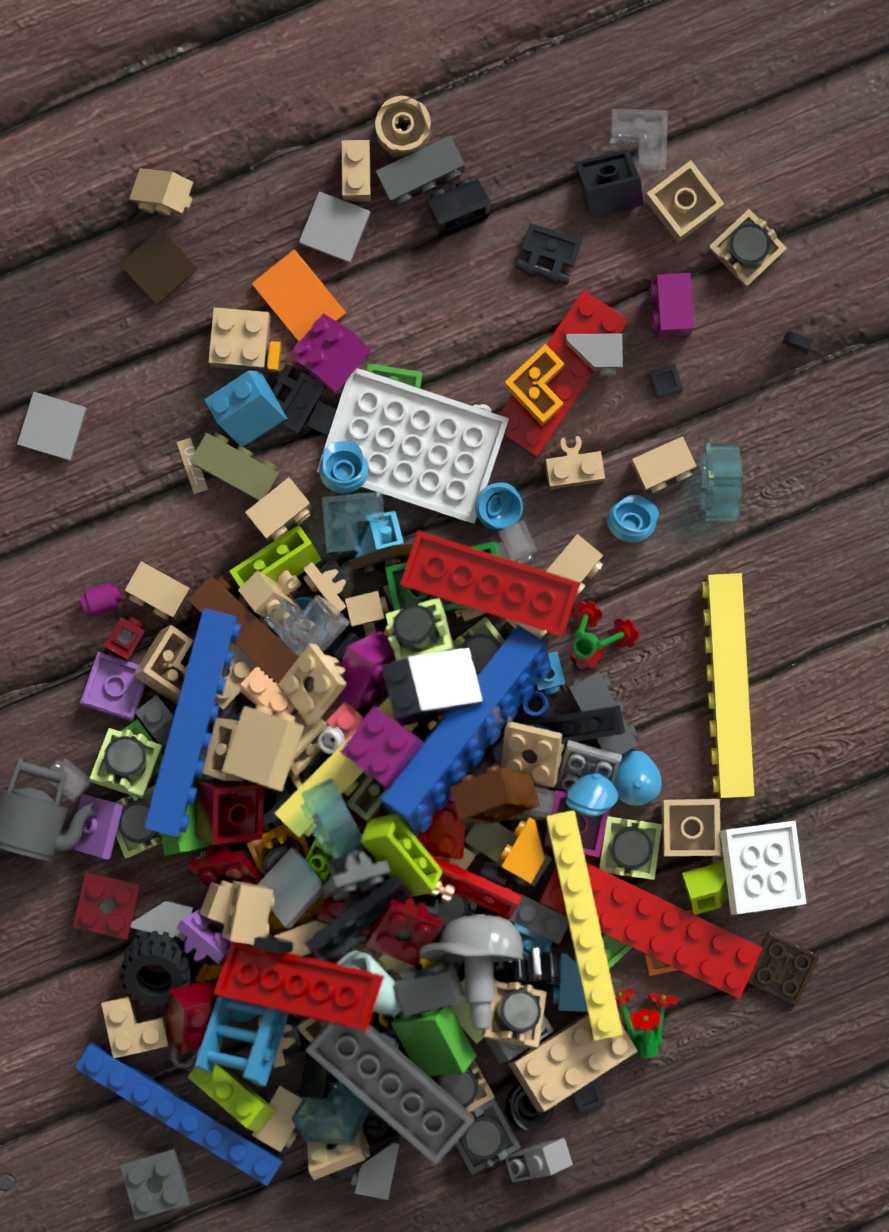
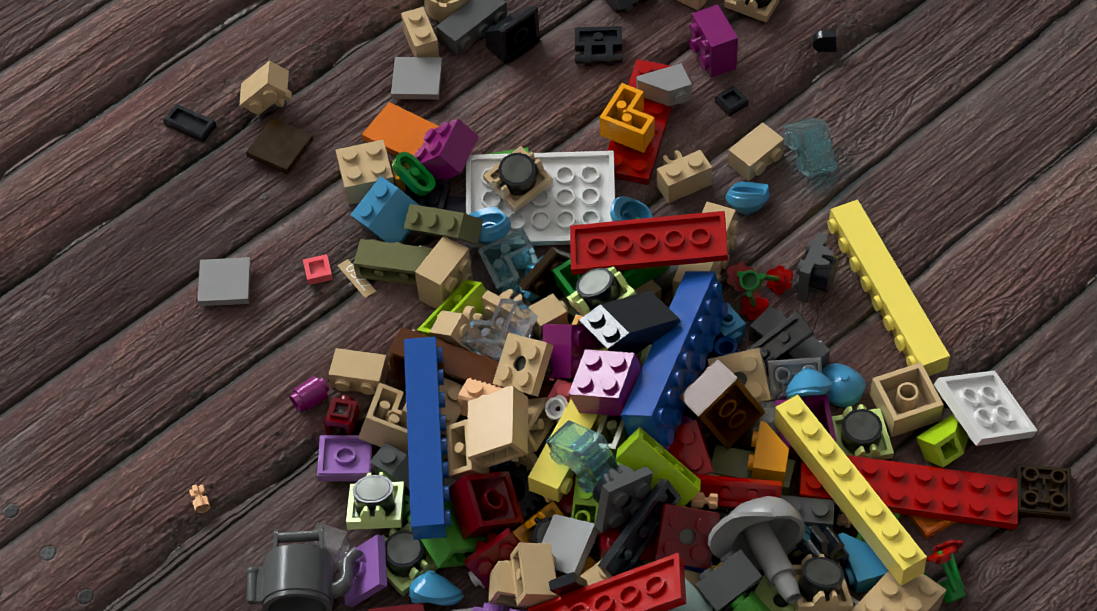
camera: 15 degrees left, 30 degrees down
(71, 194) = (189, 123): none -> black tile
(153, 446) = (317, 269): none -> coral plate
(156, 873) = (434, 589): none -> dark azure hat
(285, 371) = (413, 174): none -> green plate
(295, 456) = (441, 223): none -> olive brick
(393, 421) = (518, 178): none -> piece
(666, 645) = (817, 270): none -> dark grey piece

